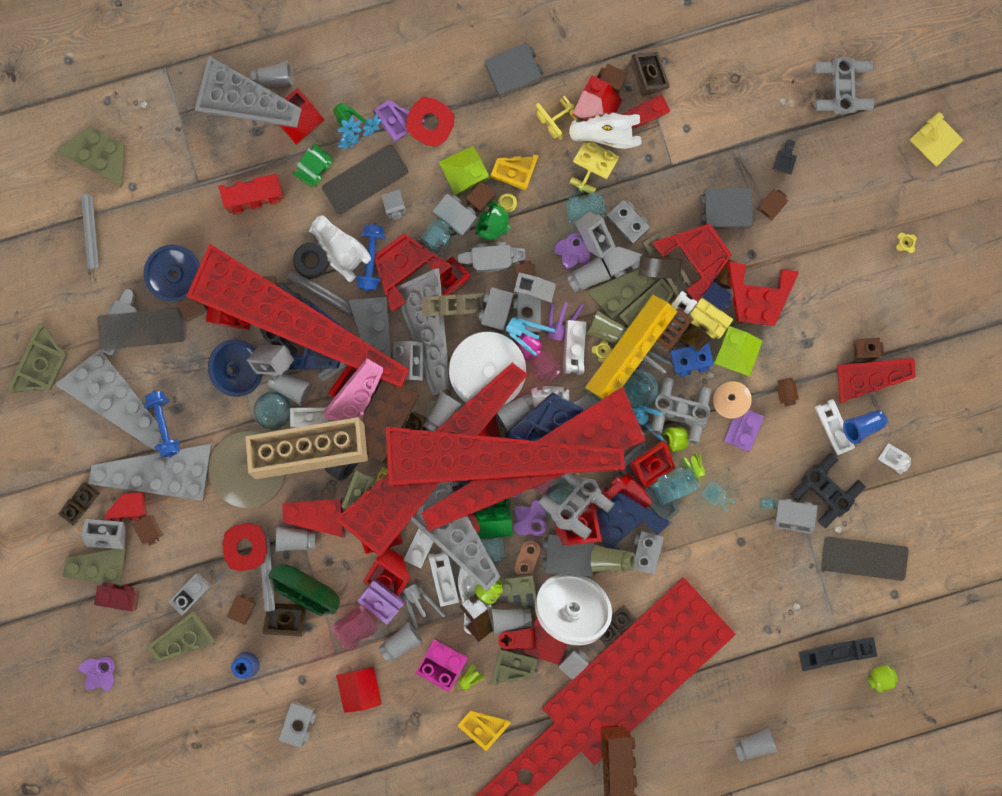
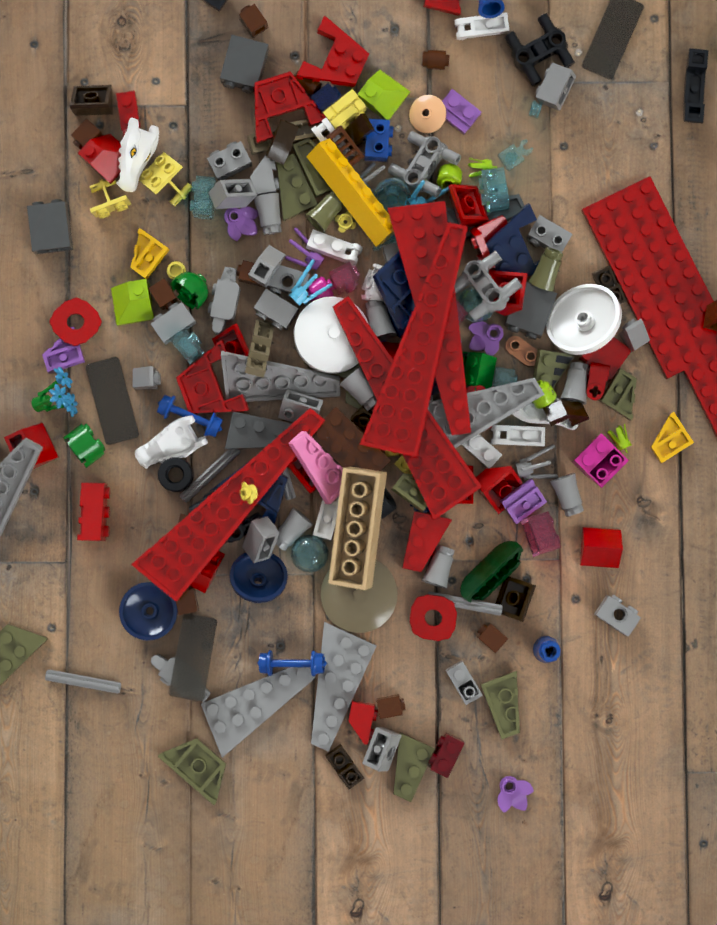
camera: 75 degrees left, 0 degrees up
(308, 334) = (248, 492): none -> light yellow plate

